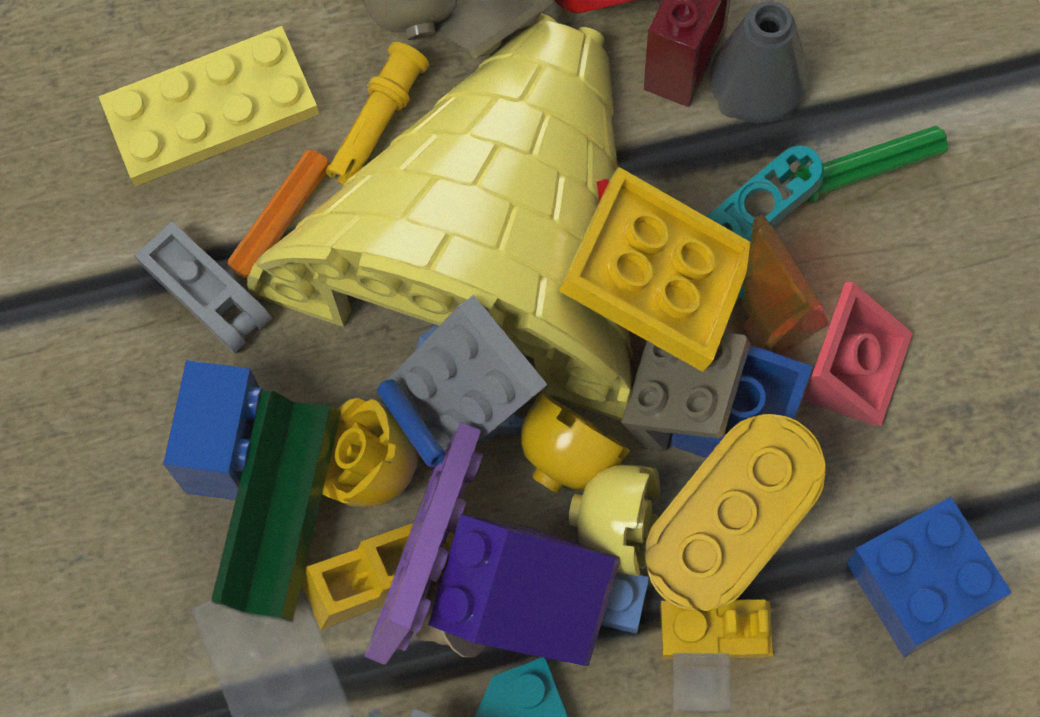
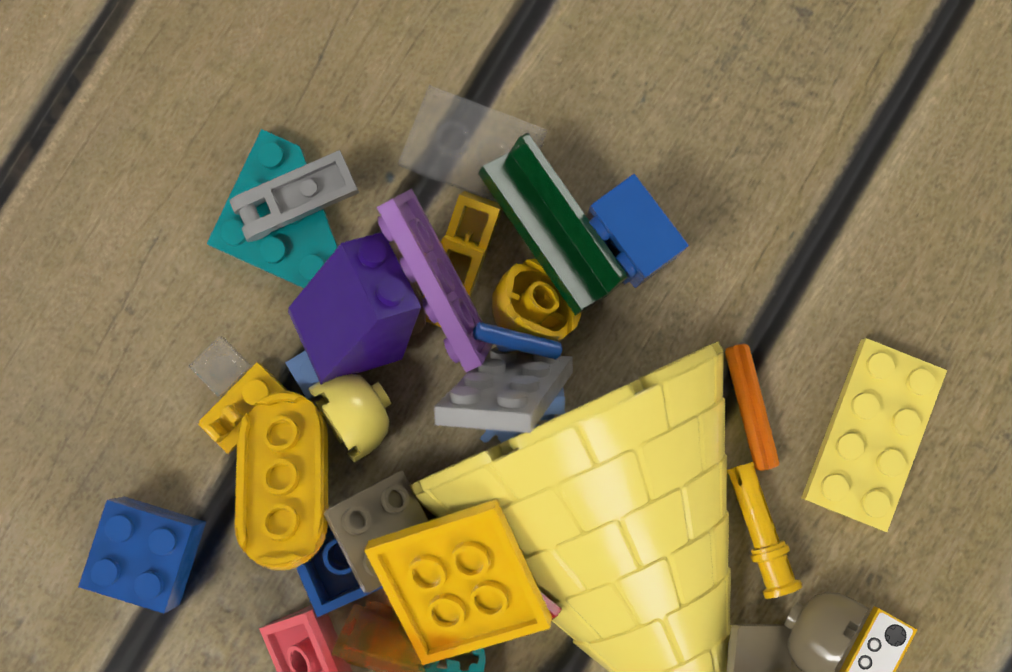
camera: 130 degrees right, 15 degrees up
(202, 286) = (747, 315): light grey plate -> none
(566, 446) = (413, 434): yellow cylinder -> none

